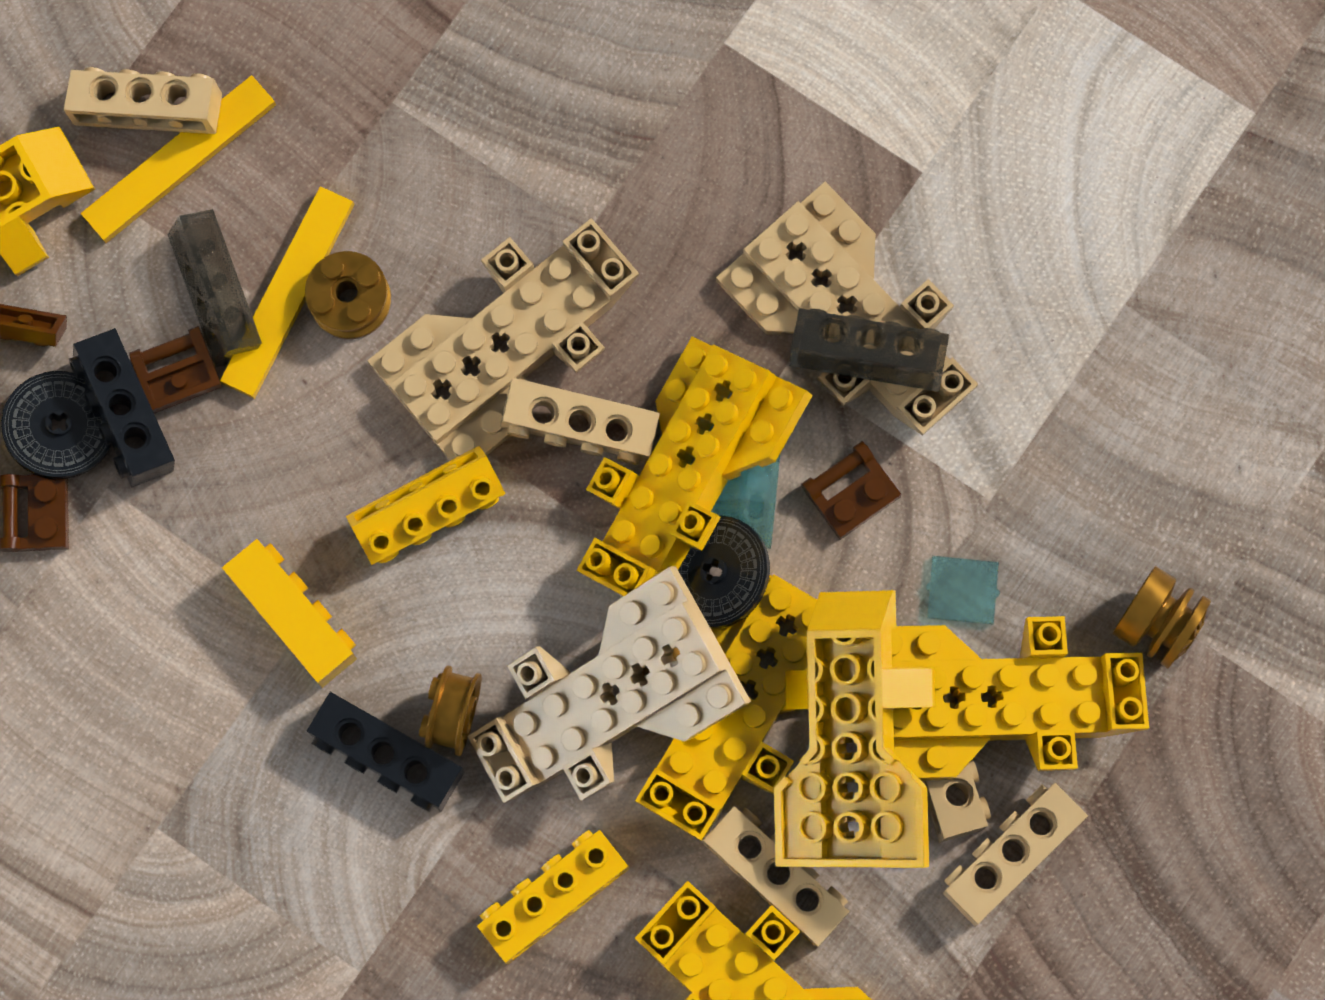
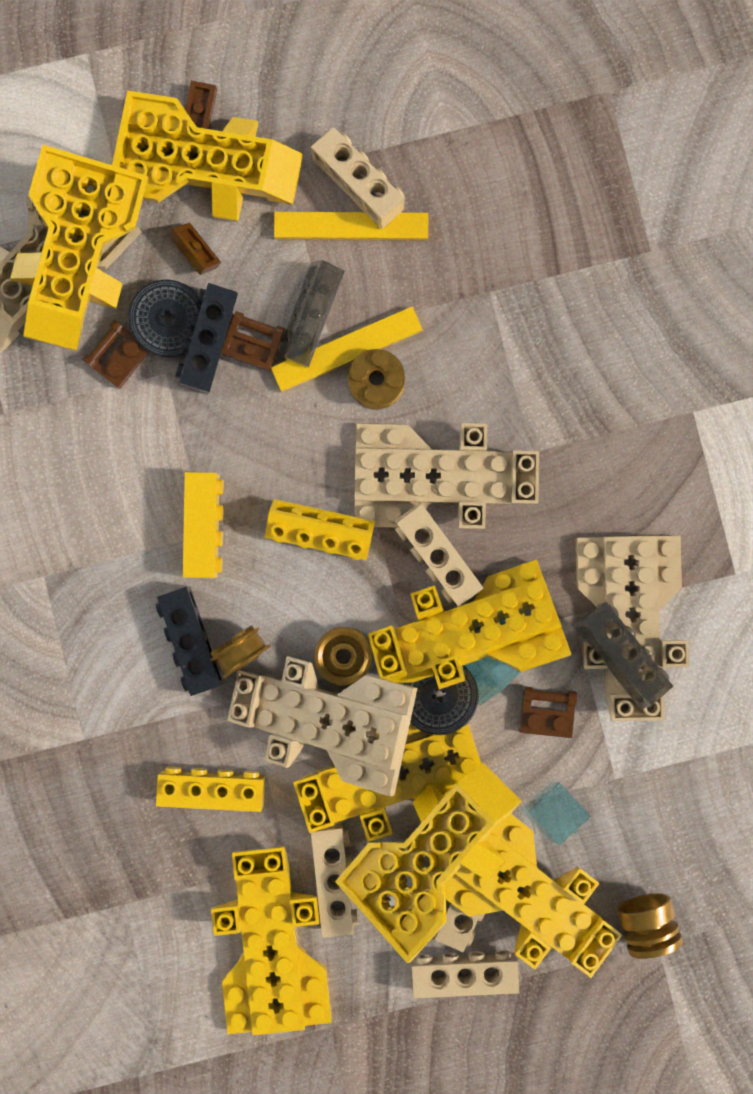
camera: 35 degrees right, 10 degrees up
(555, 599) = (339, 672): none -> pearl gold wheel

